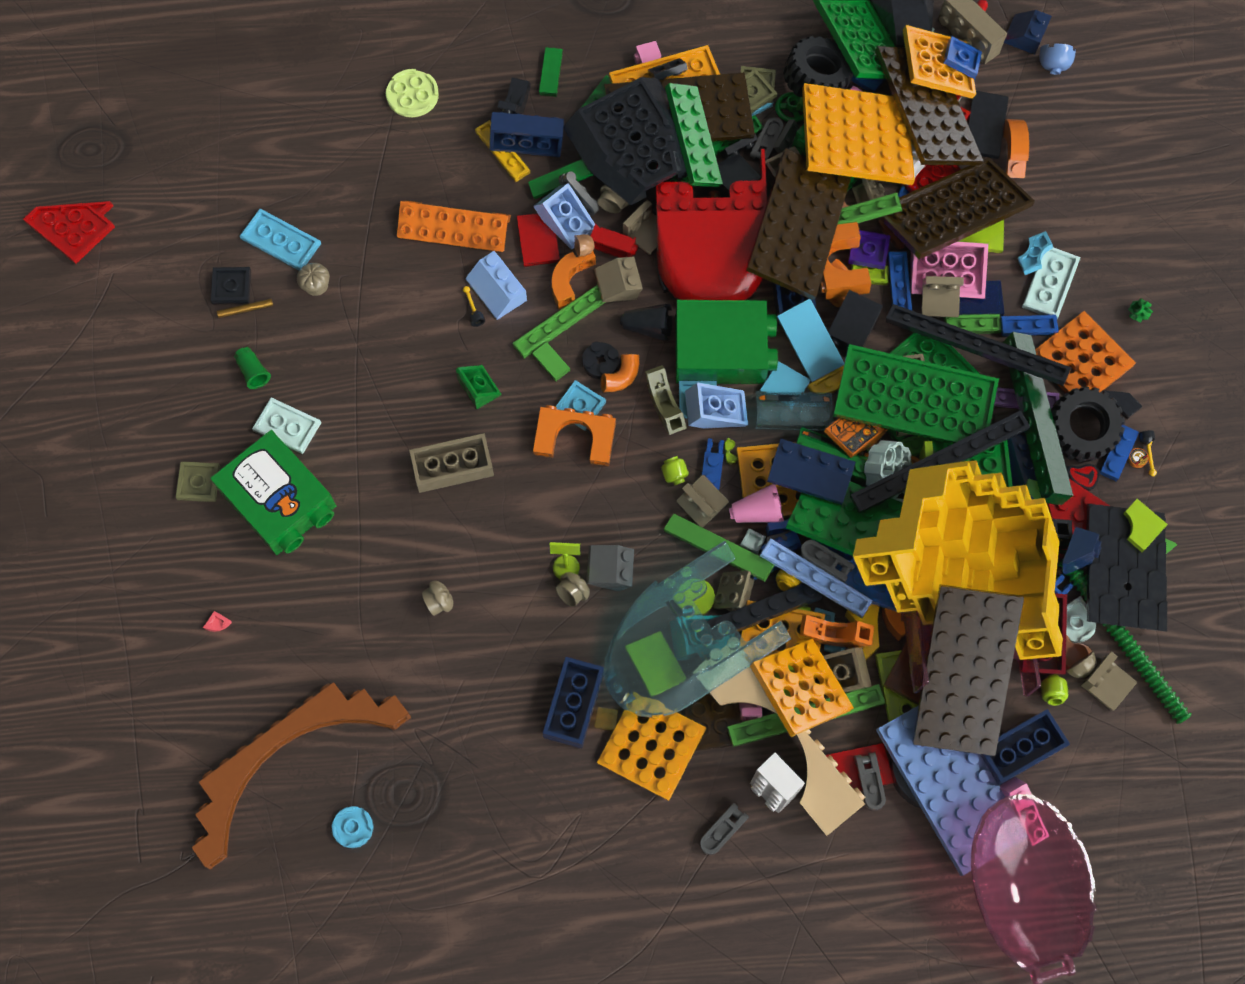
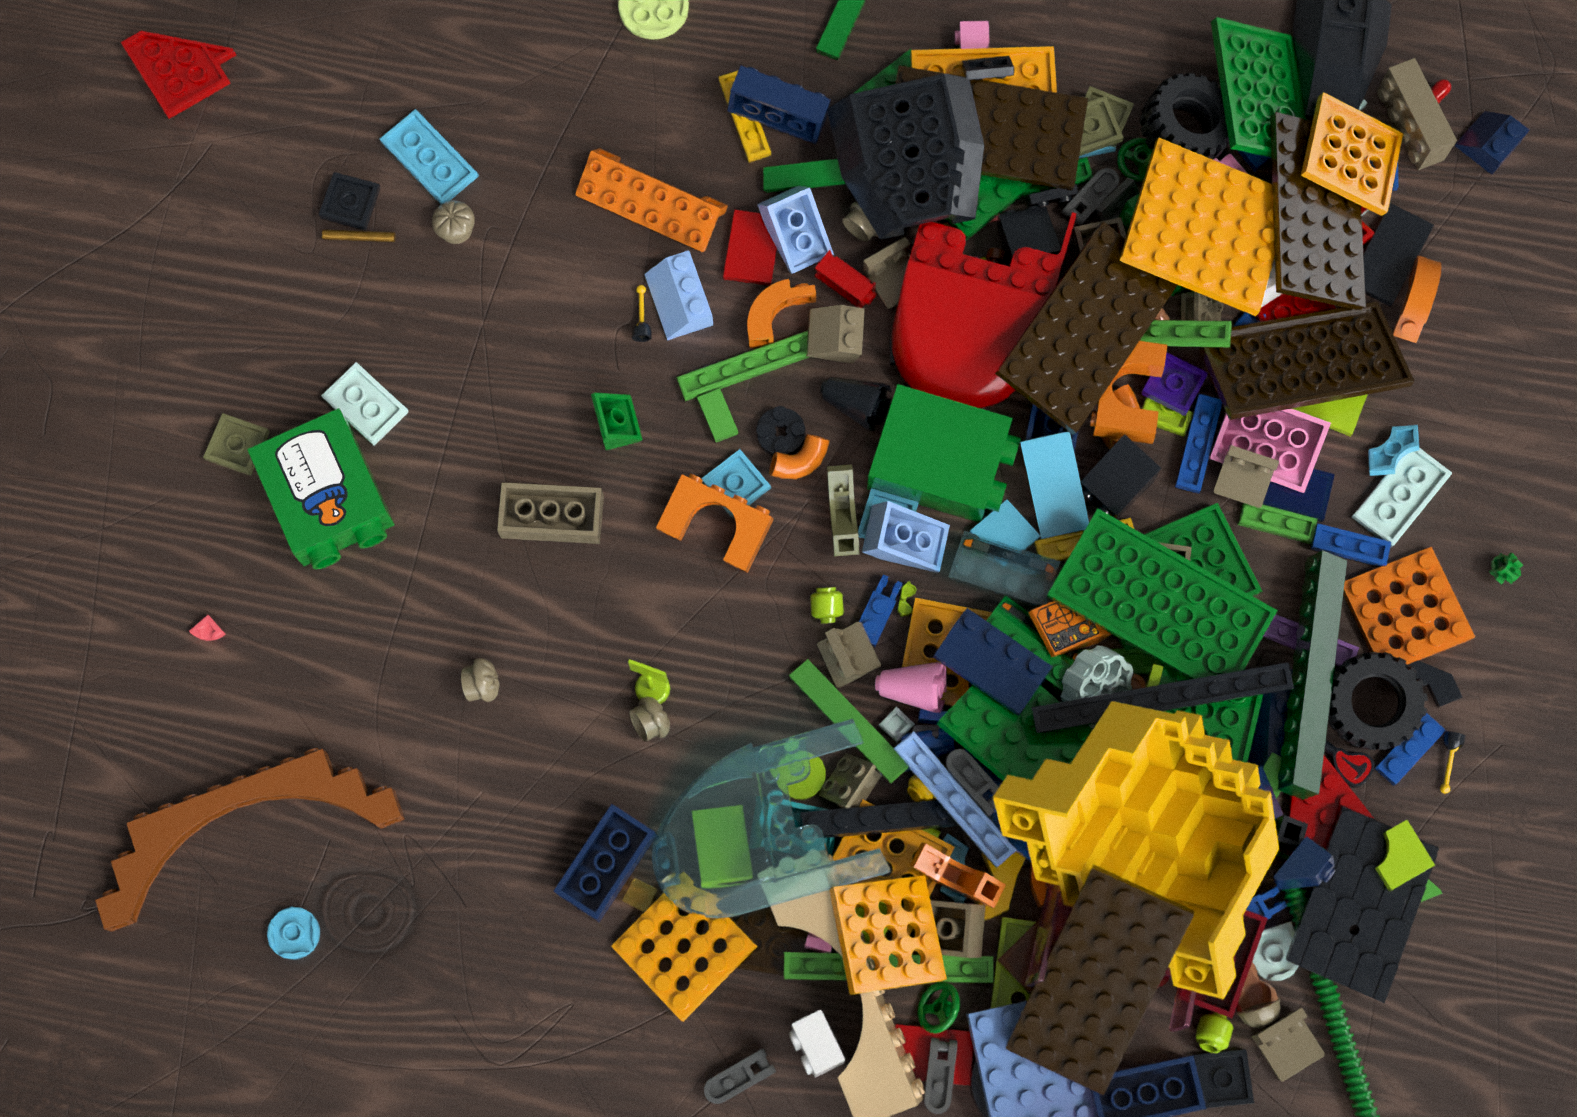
camera: 20 degrees right, 5 degrees up
(251, 368) = (342, 318): green plant -> none
(516, 98) = (782, 51): black arch -> none
(583, 244) = (805, 275): medium nougat piece -> none
(589, 203) = (830, 219): dark grey plate -> none
(610, 566) = (704, 705): dark grey slope -> none
(693, 135) = (990, 169): plate -> none
(854, 732) = (943, 1008): none -> green piece
(962, 57) = (1386, 156): blue tile -> none
(978, 345) = (1269, 556): black plate -> none
(1057, 58) = (1517, 190): medium blue cylinder -> none
(1074, 720) = (1224, 1078): none -> black tile
(1138, 458) = (1432, 764): tile -> none

